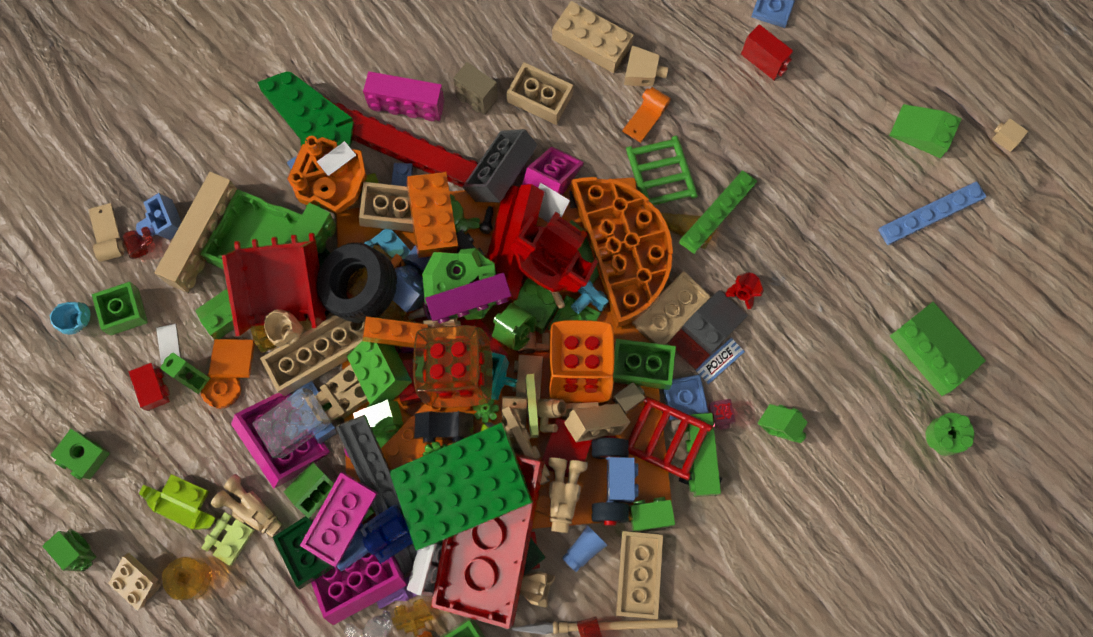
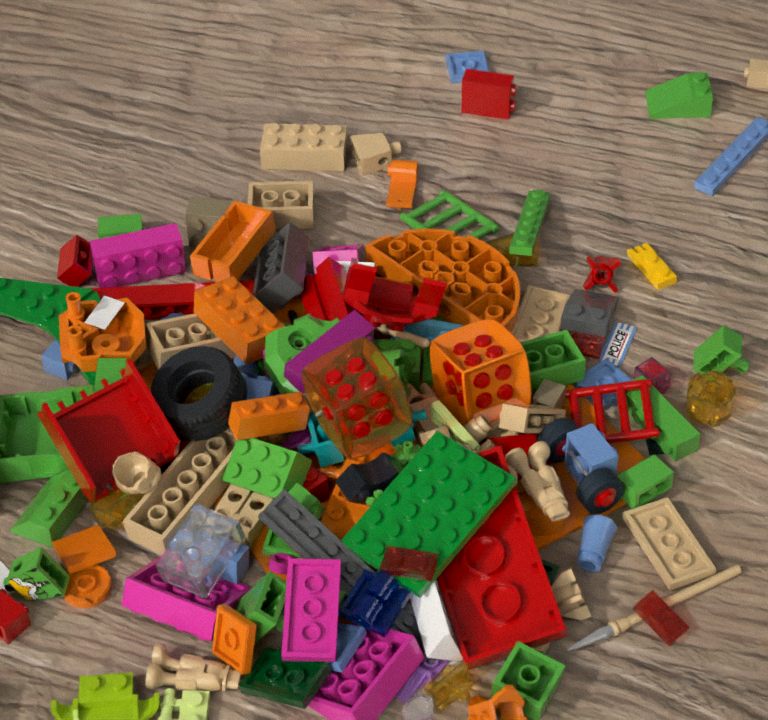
camera: 25 degrees left, 30 degrees down
(282, 504) = (234, 638): none -> orange tile
(356, 75) = (75, 262): none -> red brick
(409, 59) = (119, 225): none -> bright green brick
(419, 527) = (409, 563): none -> clear red plate
(473, 128) = (233, 242): none -> orange piece
(760, 467) = (710, 398): none -> clear yellow brick
(793, 297) = (652, 266): none -> yellow hinge

